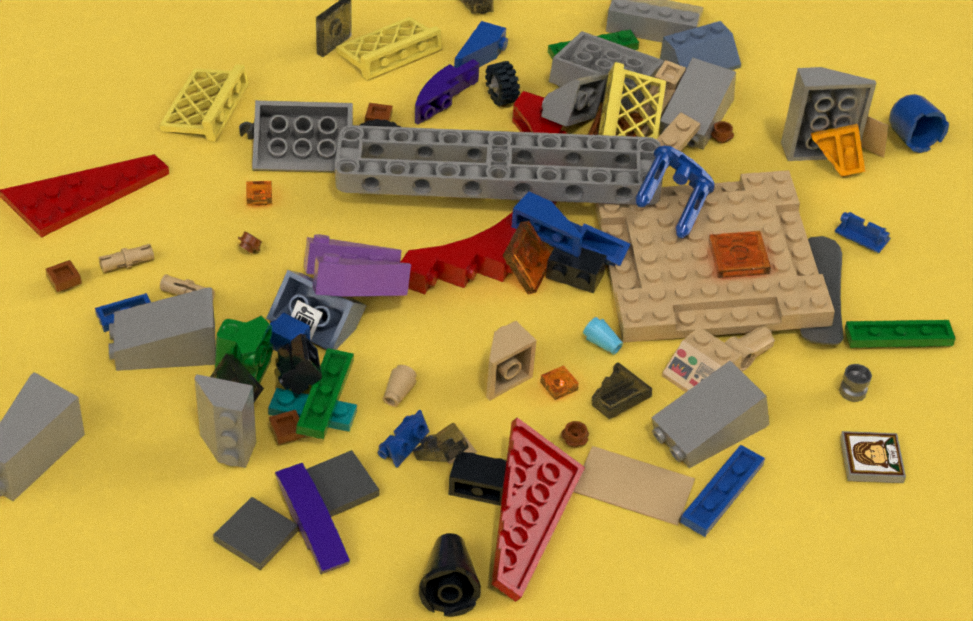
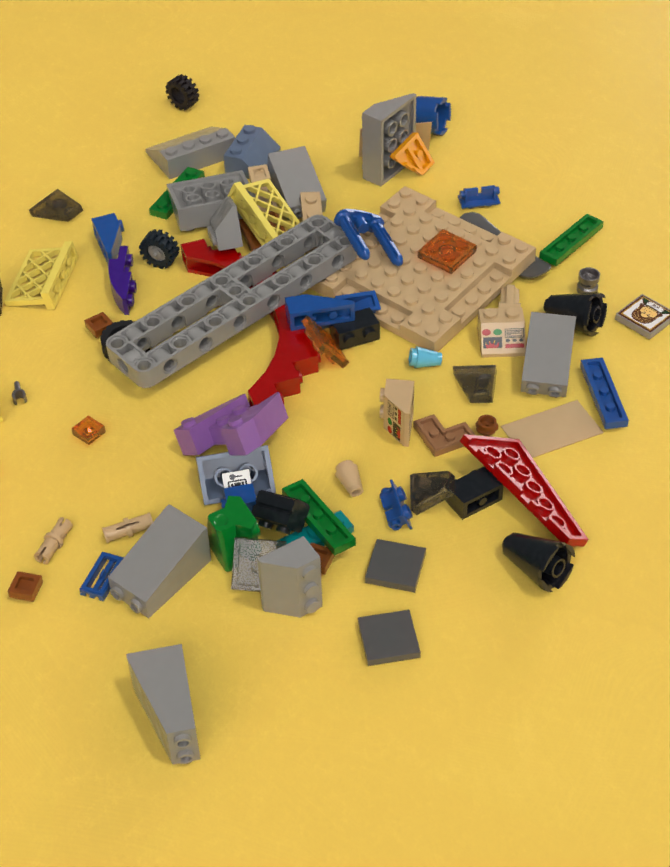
camera: 40 degrees left, 0 degrees up
(249, 242) = (128, 465): dark orange plate -> none
(298, 135) = (67, 373): light grey slope -> none
(312, 518) = (411, 595): dark purple slope -> none
(524, 405) = (437, 437): none -> medium nougat tile
(559, 382) = (438, 403): clear orange plate -> none
(722, 131) = (328, 191): dark orange plate -> none
(802, 402) = (587, 308): none -> black cone

